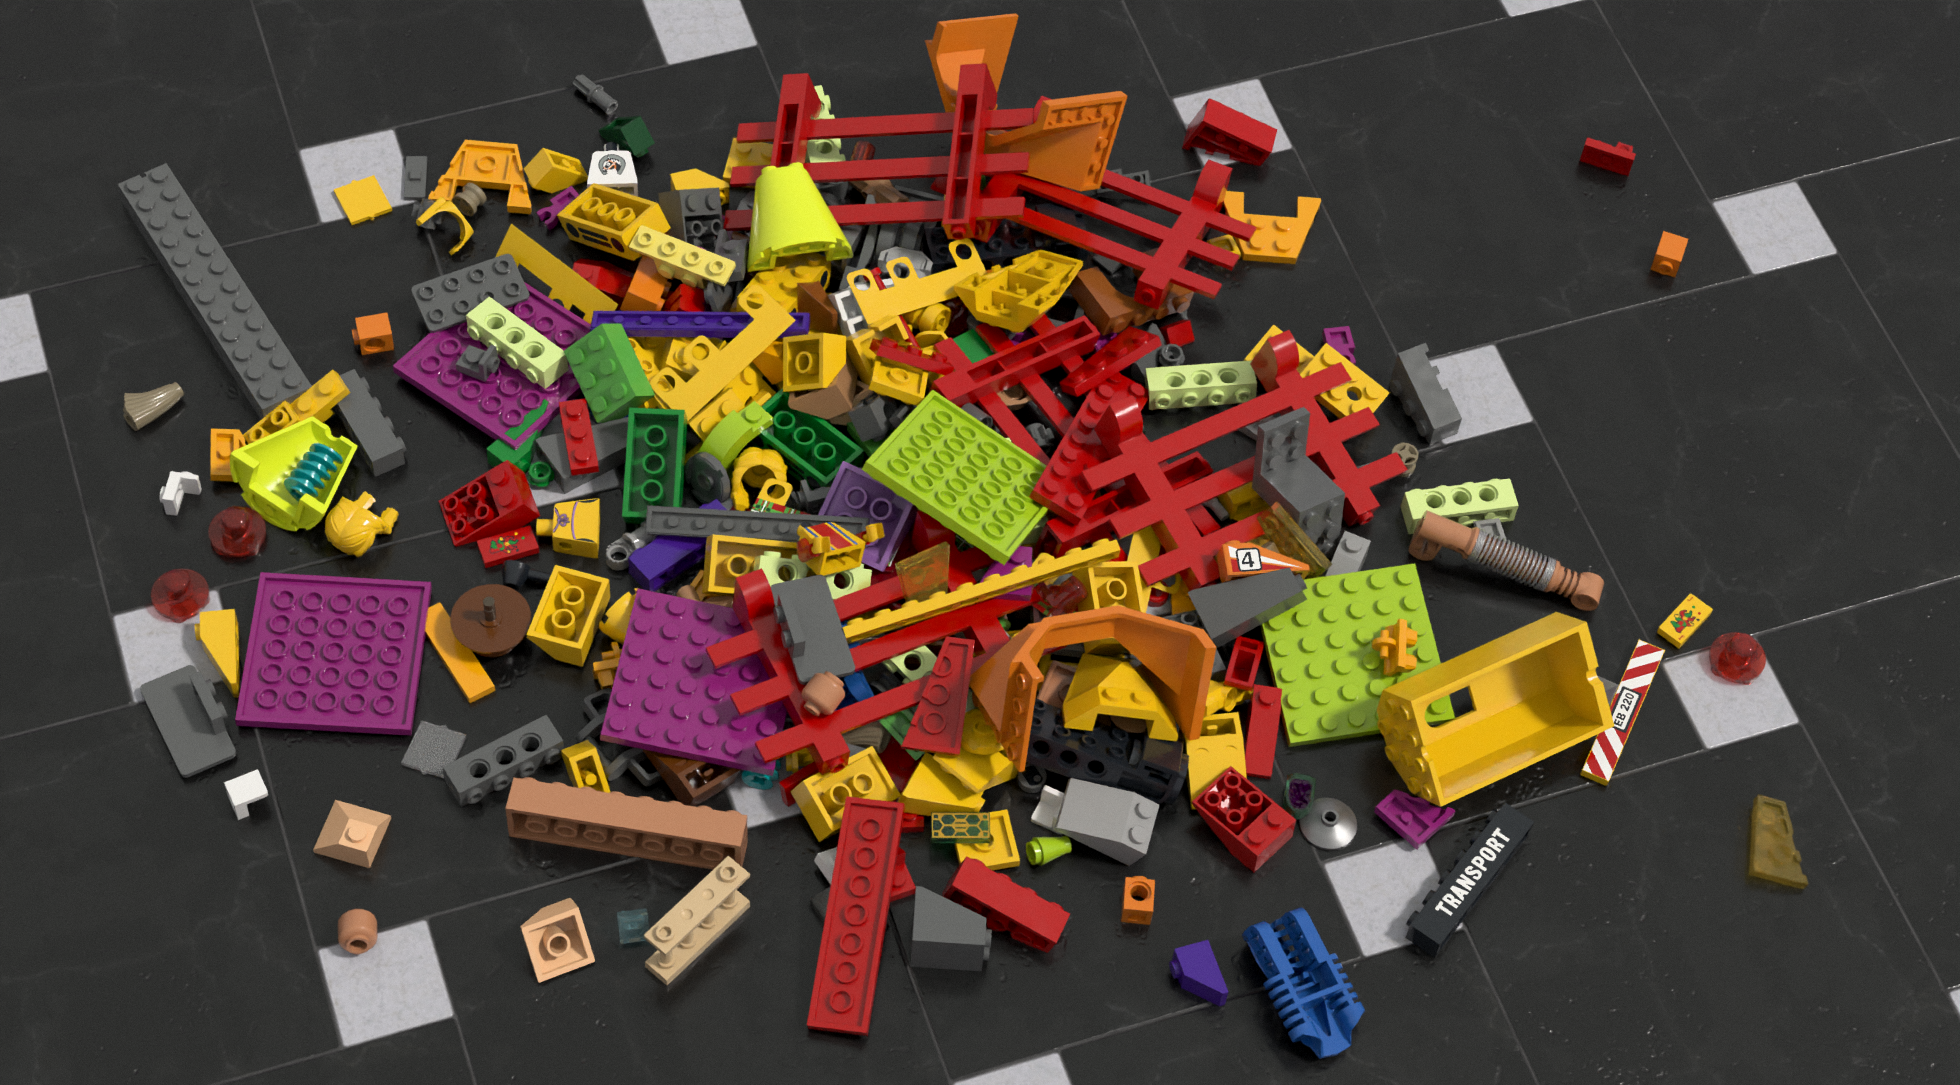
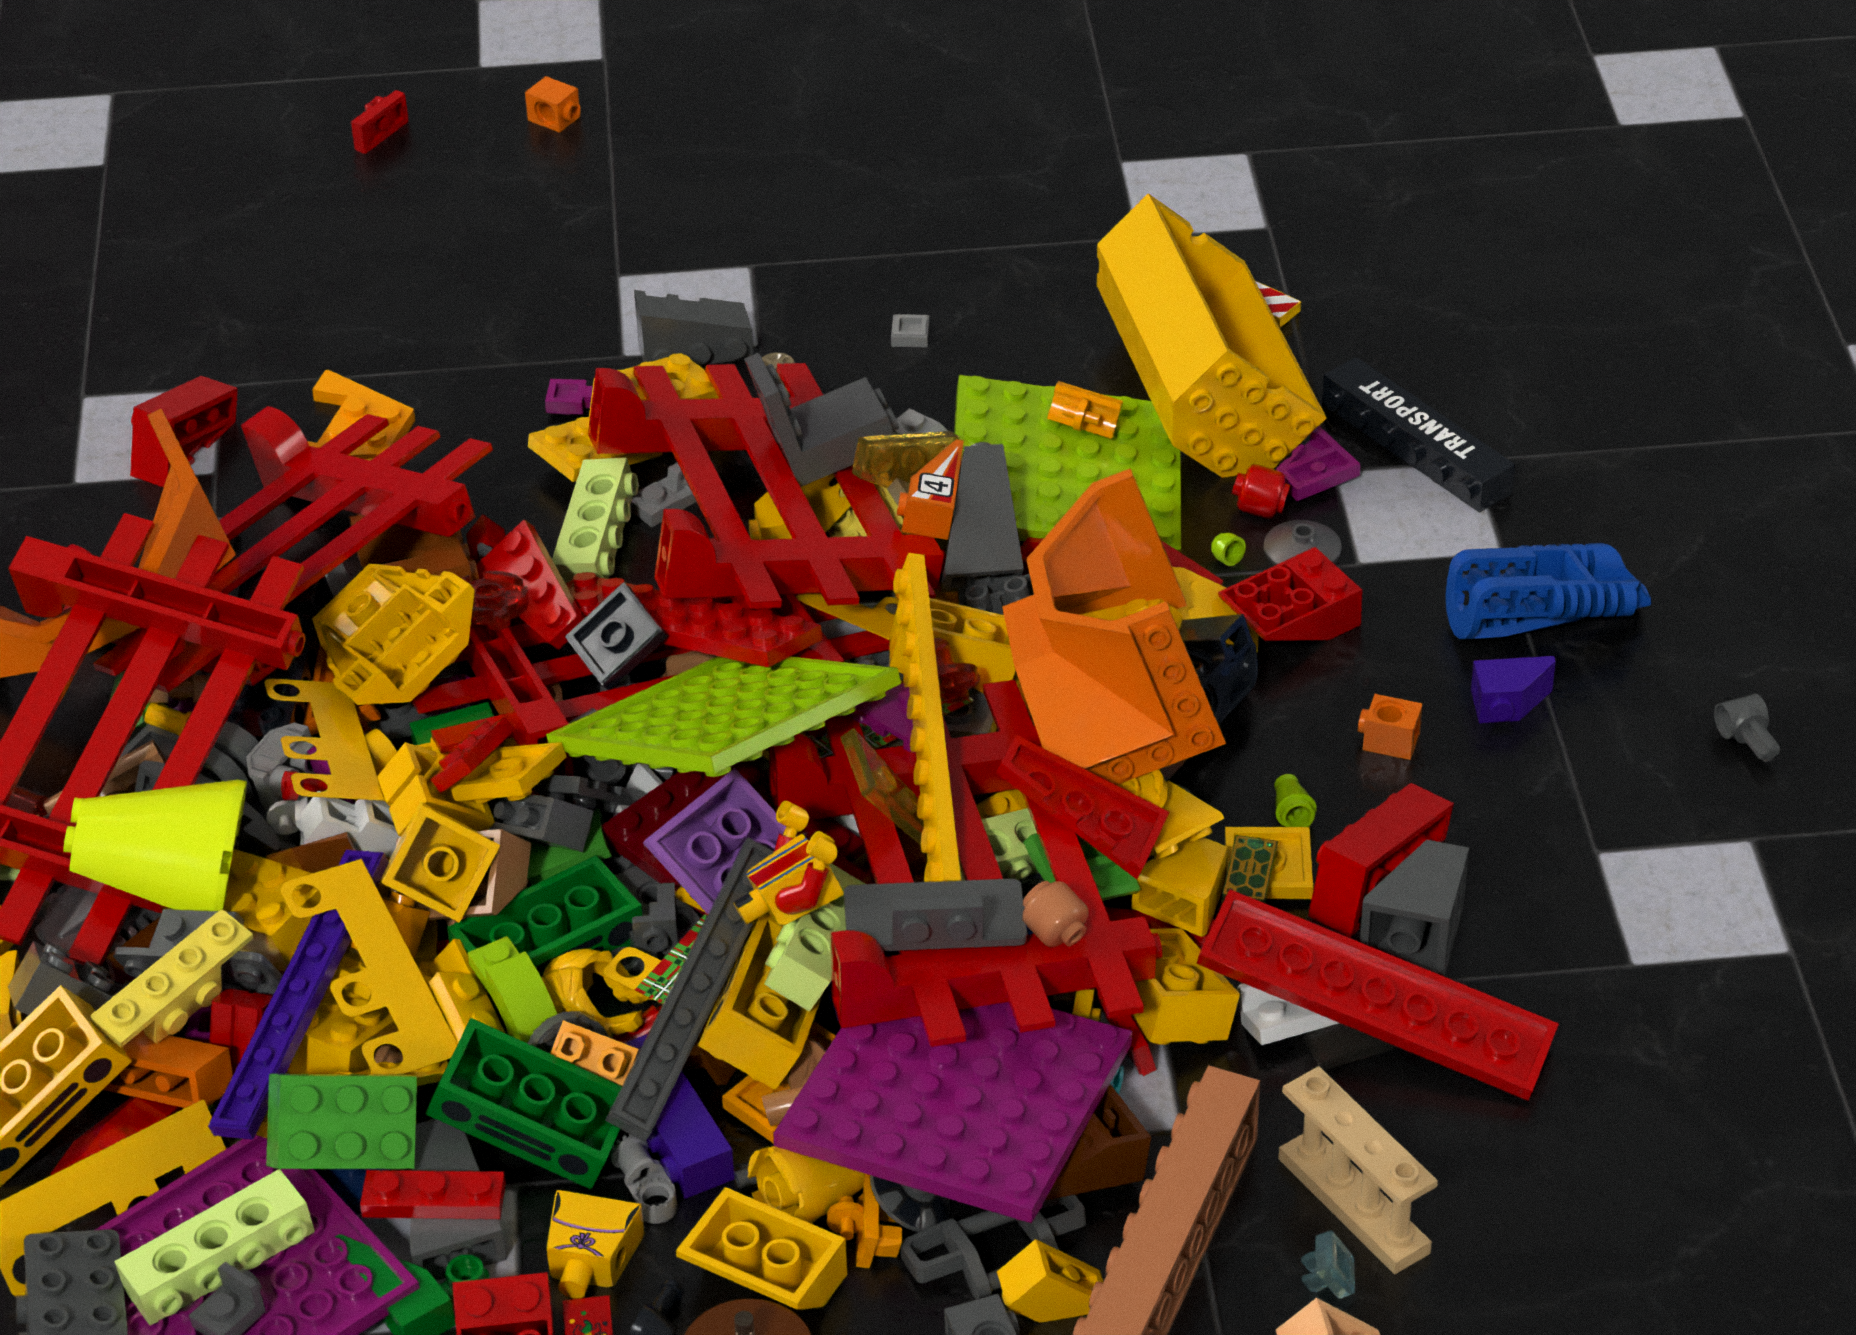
camera: 70 degrees left, 15 degrees down
(694, 485) = (594, 1052): none -> light orange hips
(1048, 808) = (1234, 783): white panel -> none
(1059, 413) = (616, 636): none -> plate
(1076, 348) = (498, 599): none -> clear red plate
(1107, 819) = (1276, 718): light grey slope -> none
(1298, 795) = (1265, 548): rock -> none
(1304, 767) = (1228, 548): none -> lime hinge
(1368, 784) = (1261, 491): none -> red head
(1474, 544) = (965, 308): nougat piece -> none
(1498, 495) = (865, 334): yellowish green brick -> none
(1684, 620) = (1087, 203): yellow tile -> none
(1737, 658) = (1152, 170): clear red plate -> none
(1772, 844) = (1406, 200): clear yellow wing -> none

